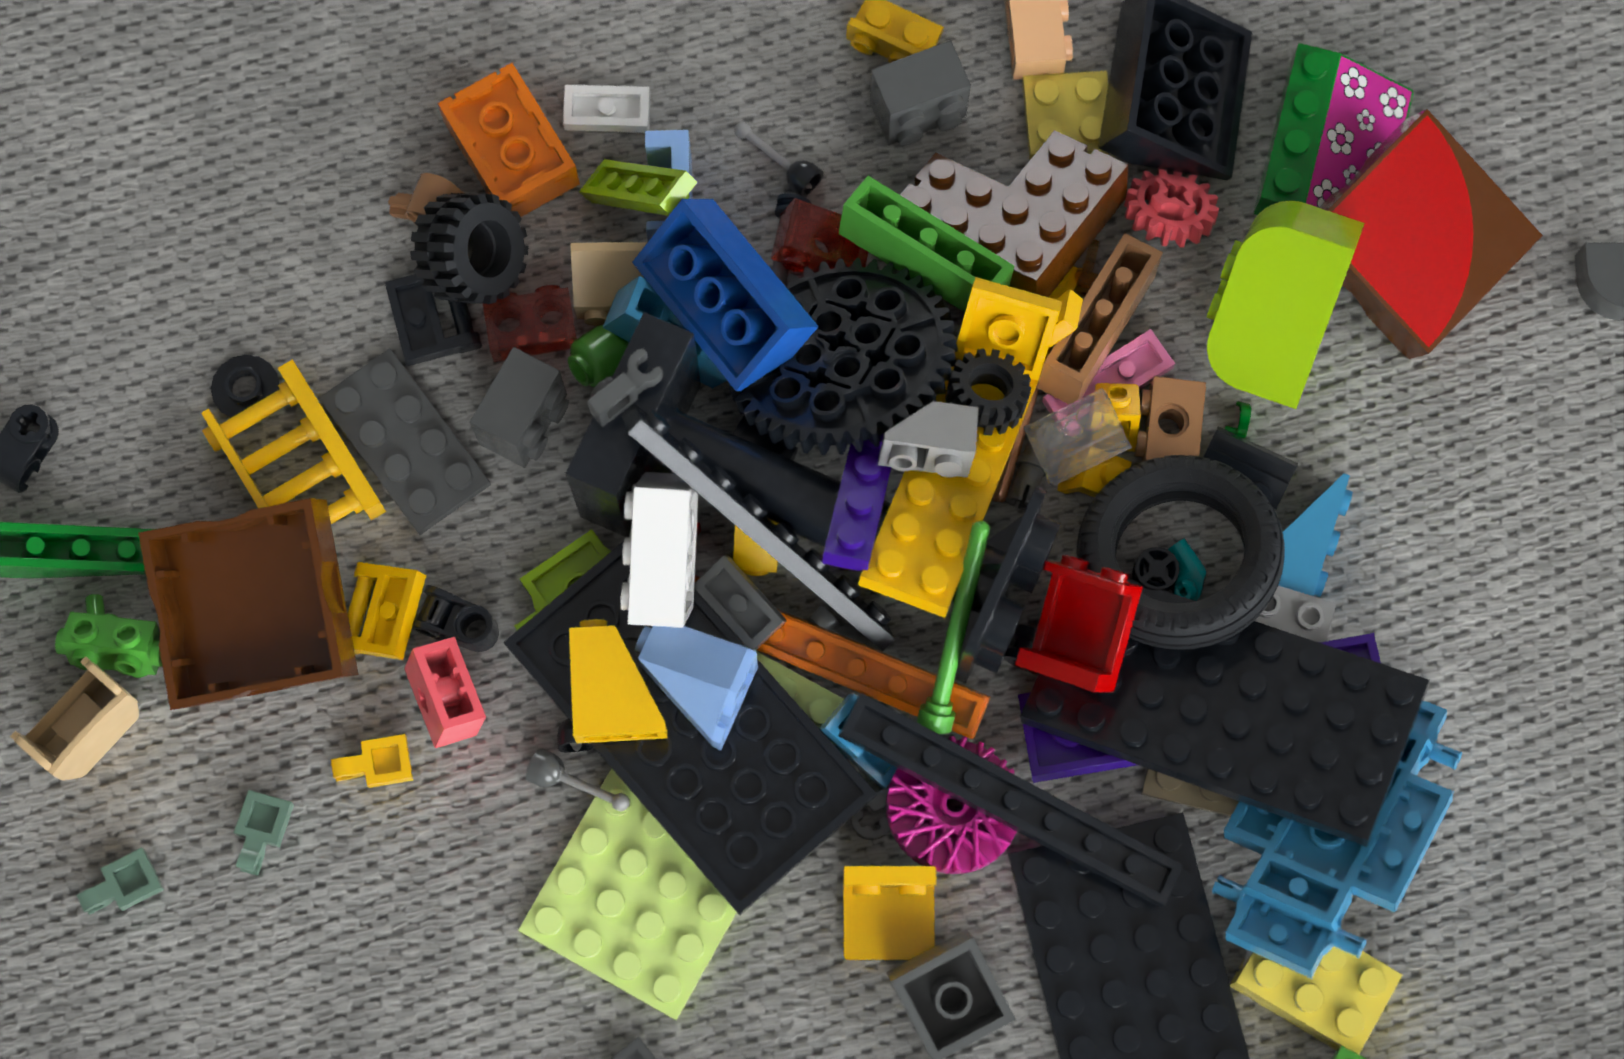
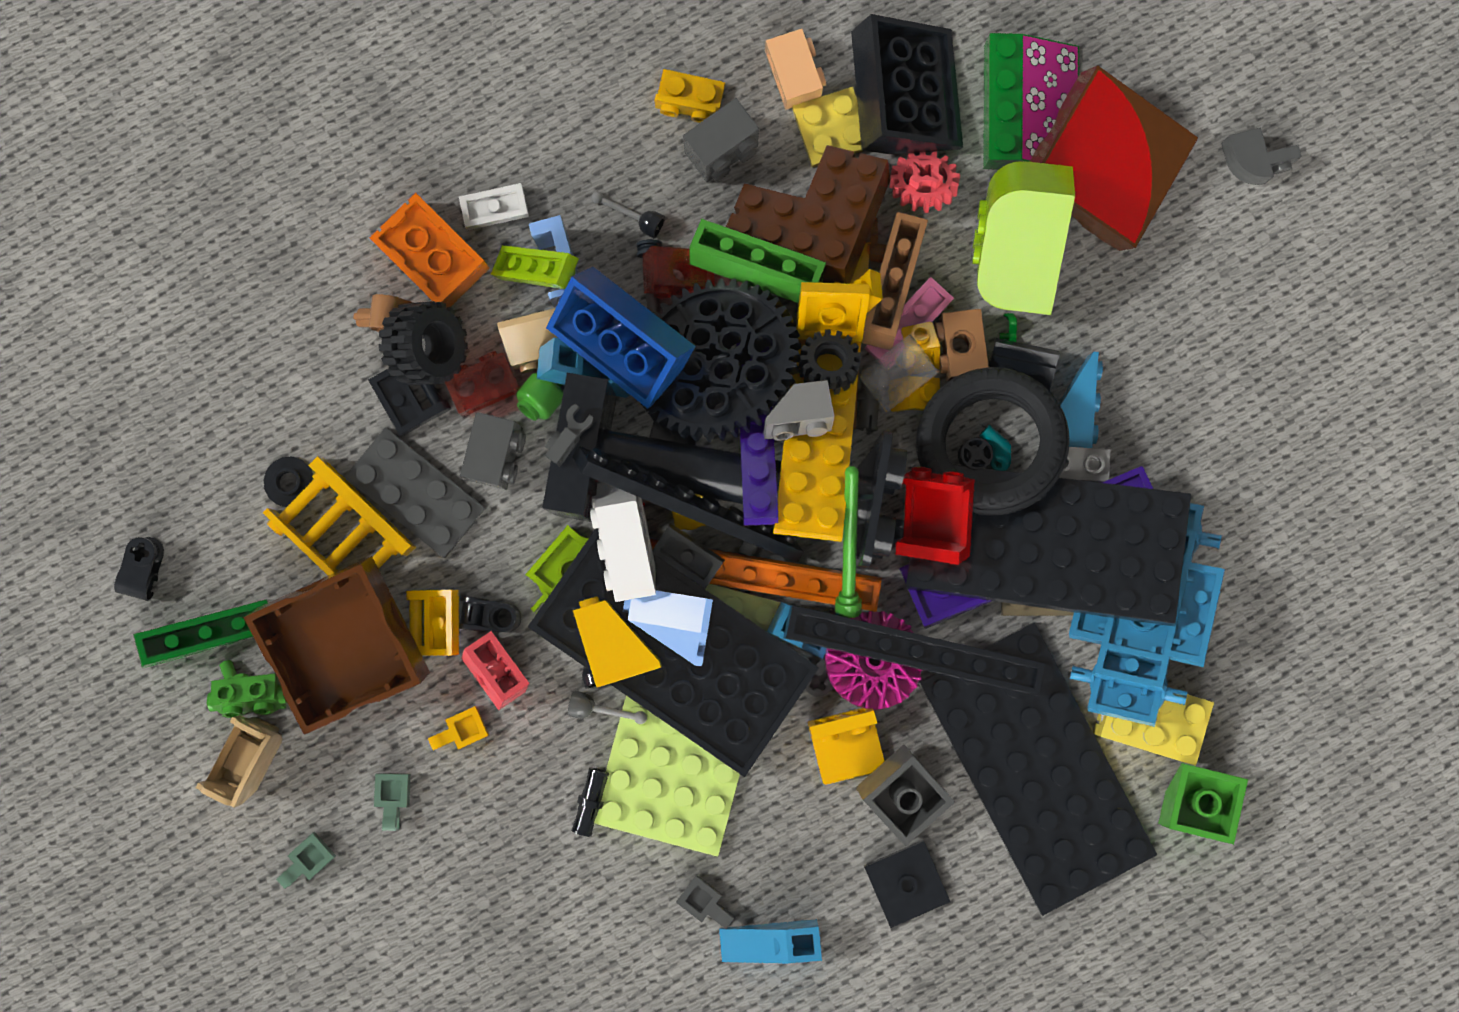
camera: 15 degrees left, 10 degrees up
(523, 901) = (590, 802): none -> black pin

